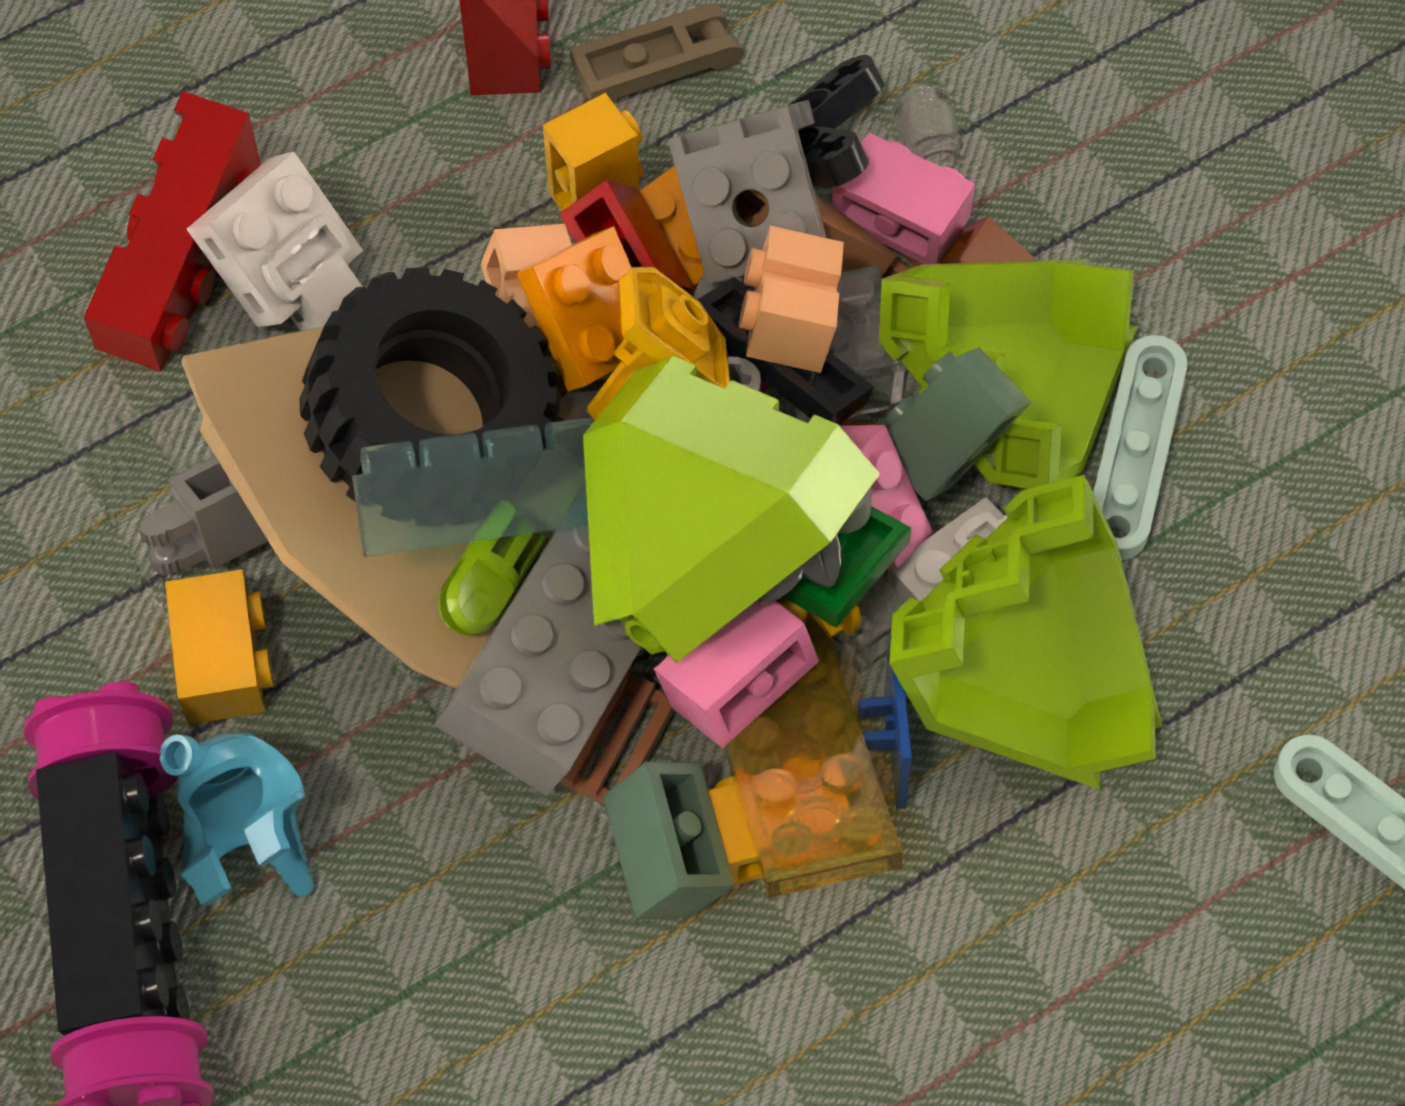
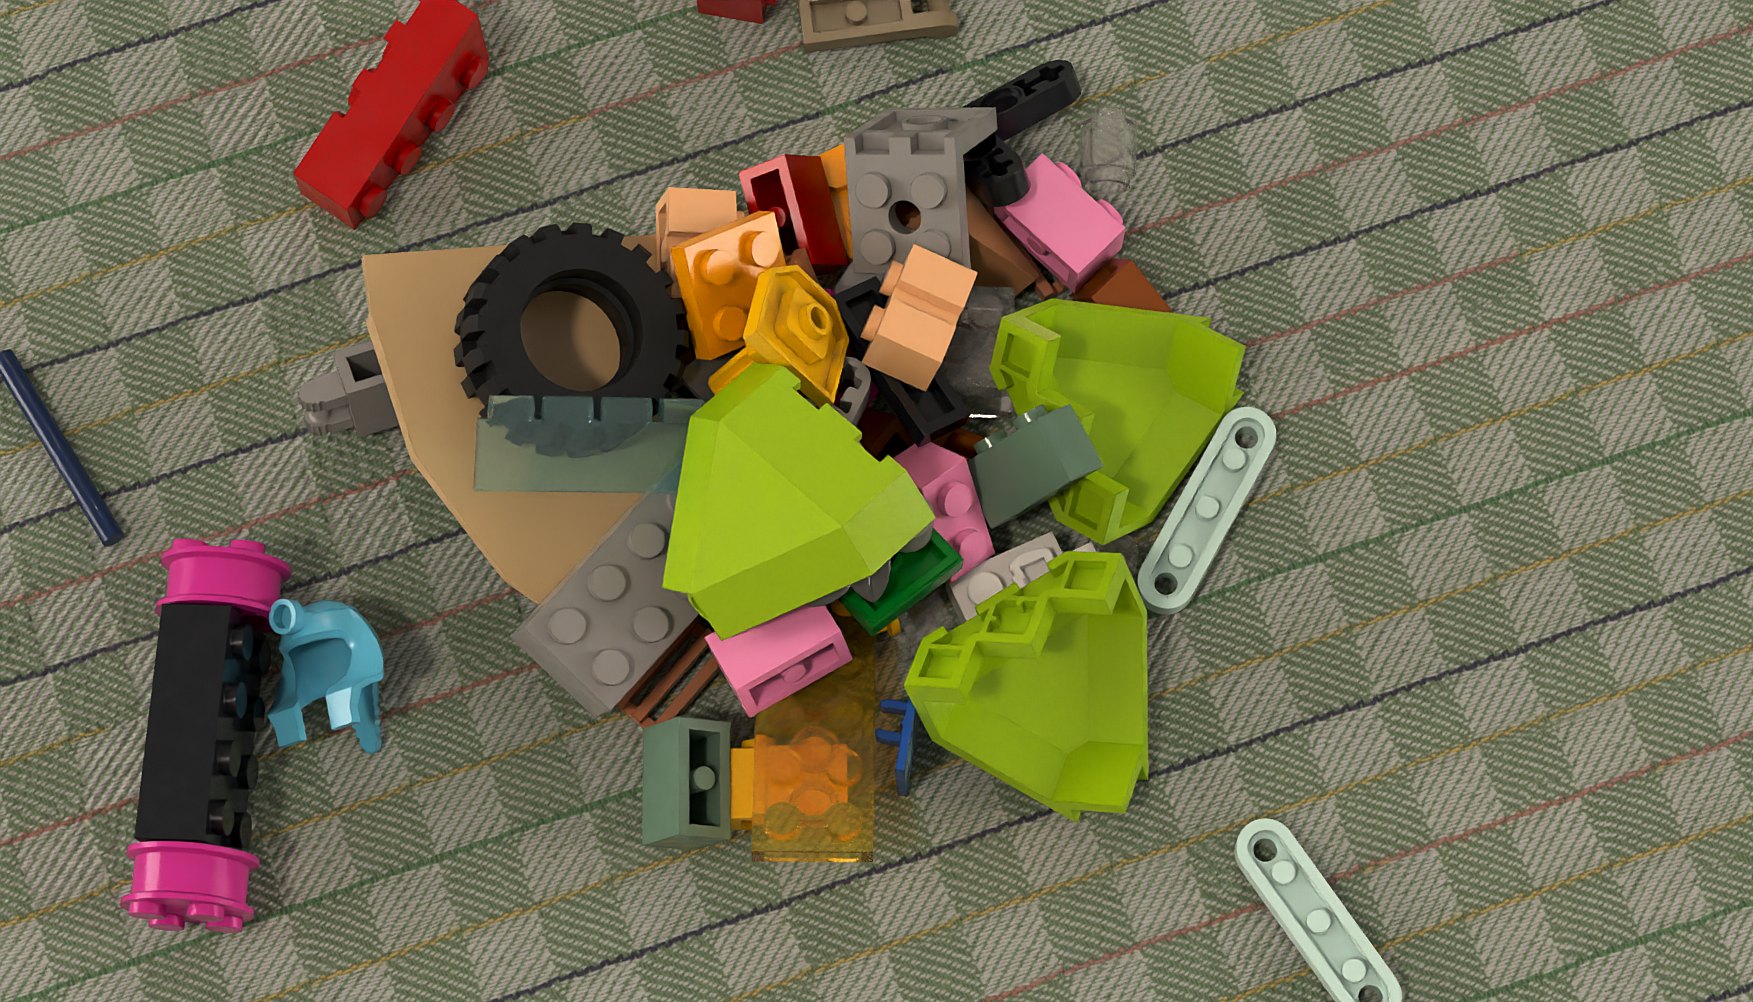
camera: 15 degrees right, 10 degrees up
(216, 646) = (345, 511): yellow brick -> none
(280, 246) = (483, 144): white piece -> none
(486, 581) = (580, 523): lime arm -> none
(588, 148) = (786, 116): yellow brick -> none

